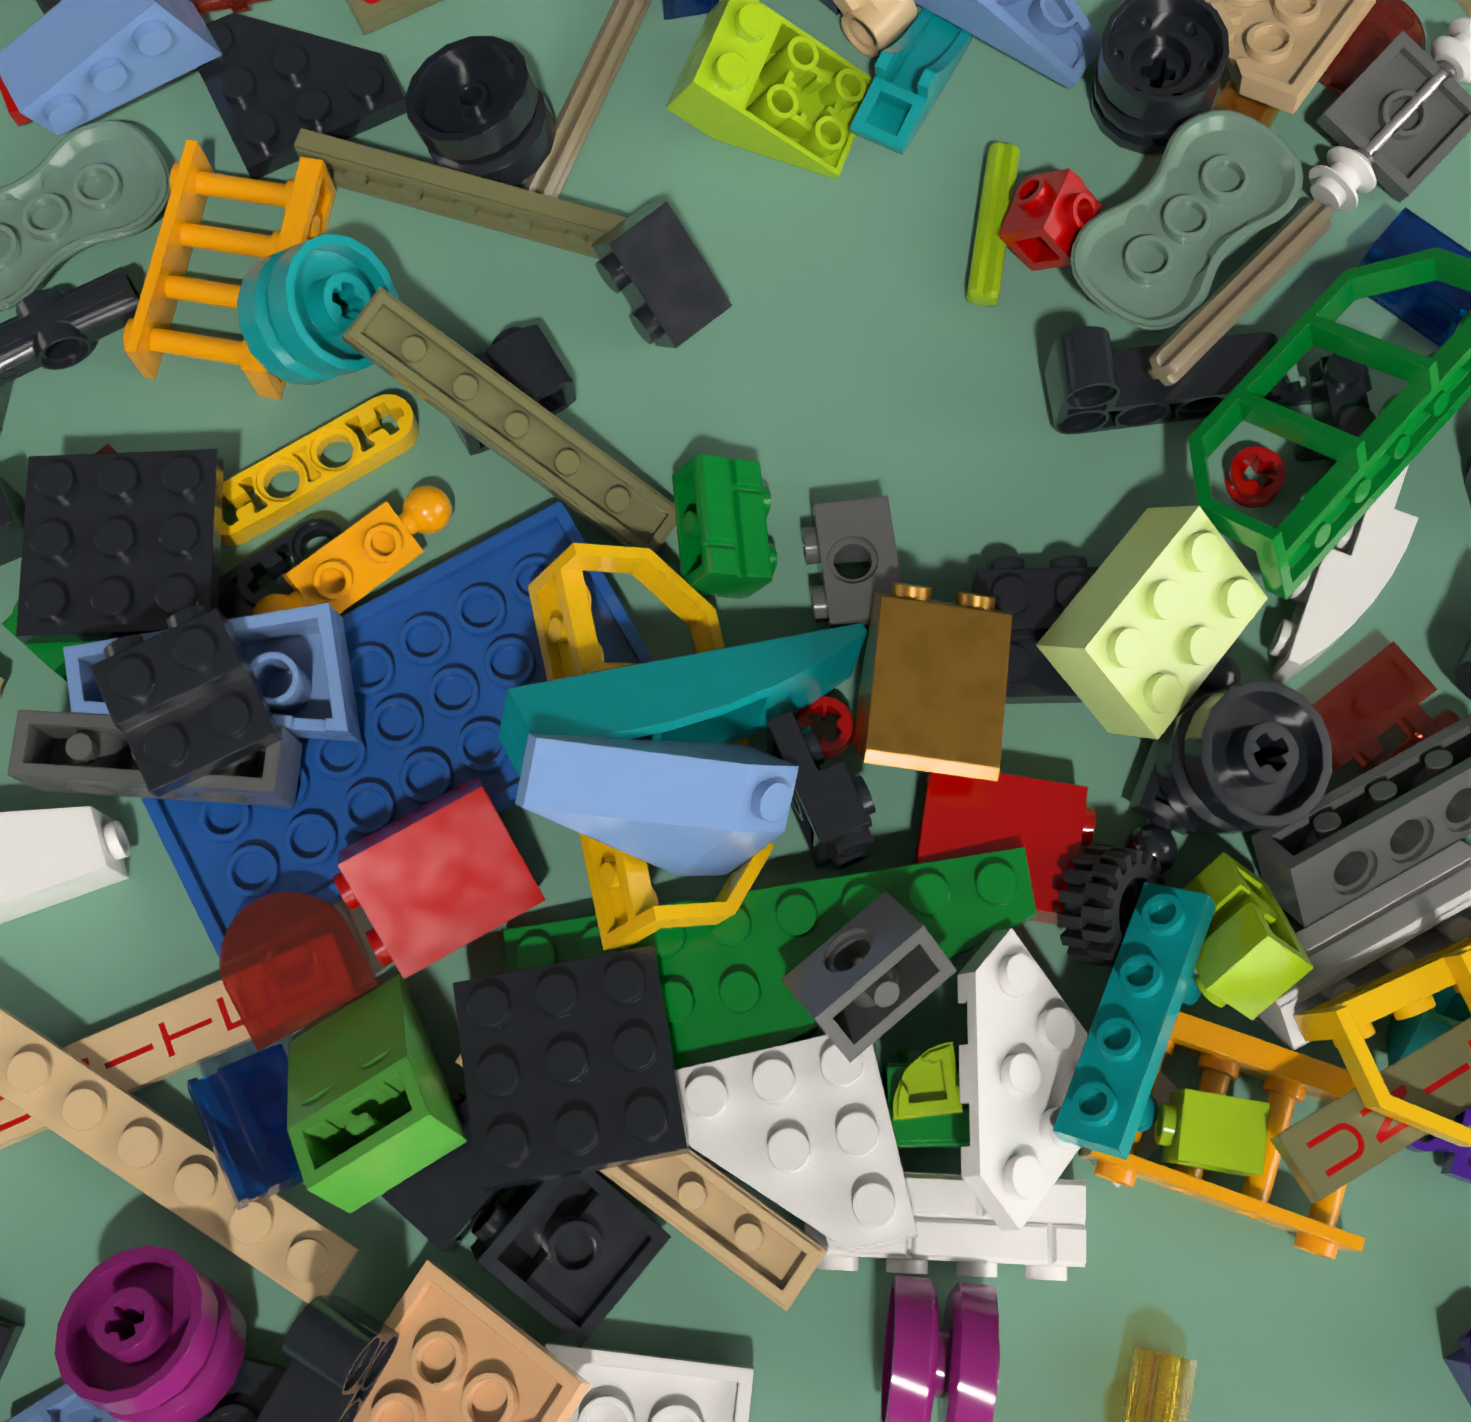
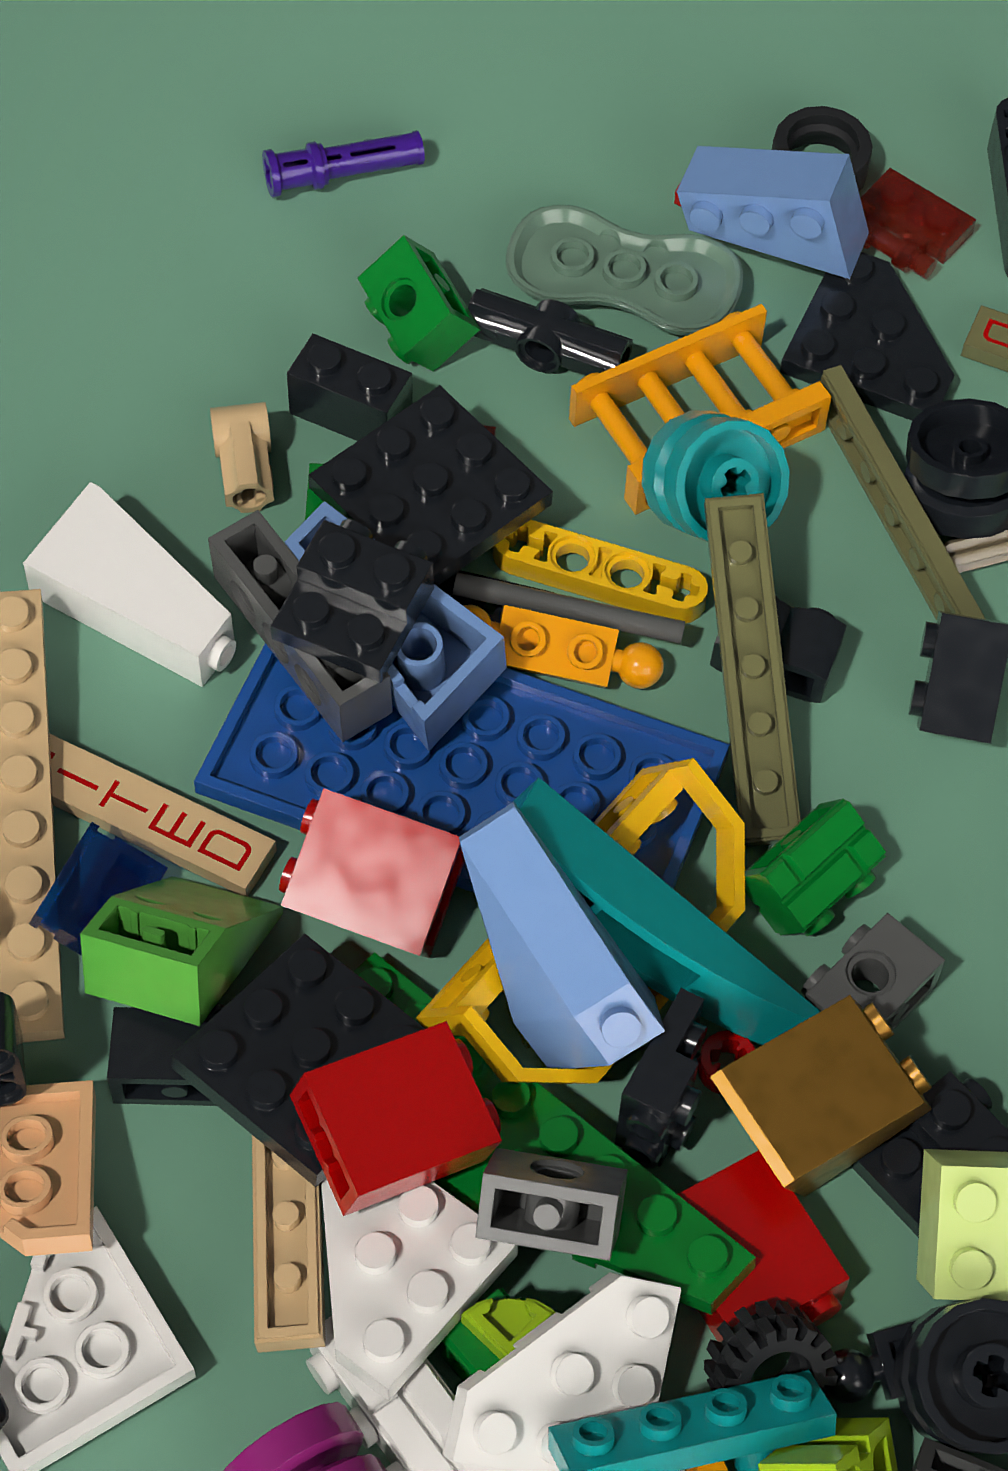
camera: 45 degrees right, 15 degrees down
(291, 964) = (228, 828): clear red tile -> none
(327, 524) = (569, 607): none -> dark grey bar
(568, 1248) = (180, 1169): black plate -> none
(698, 1046) = (396, 1117): none -> red brick

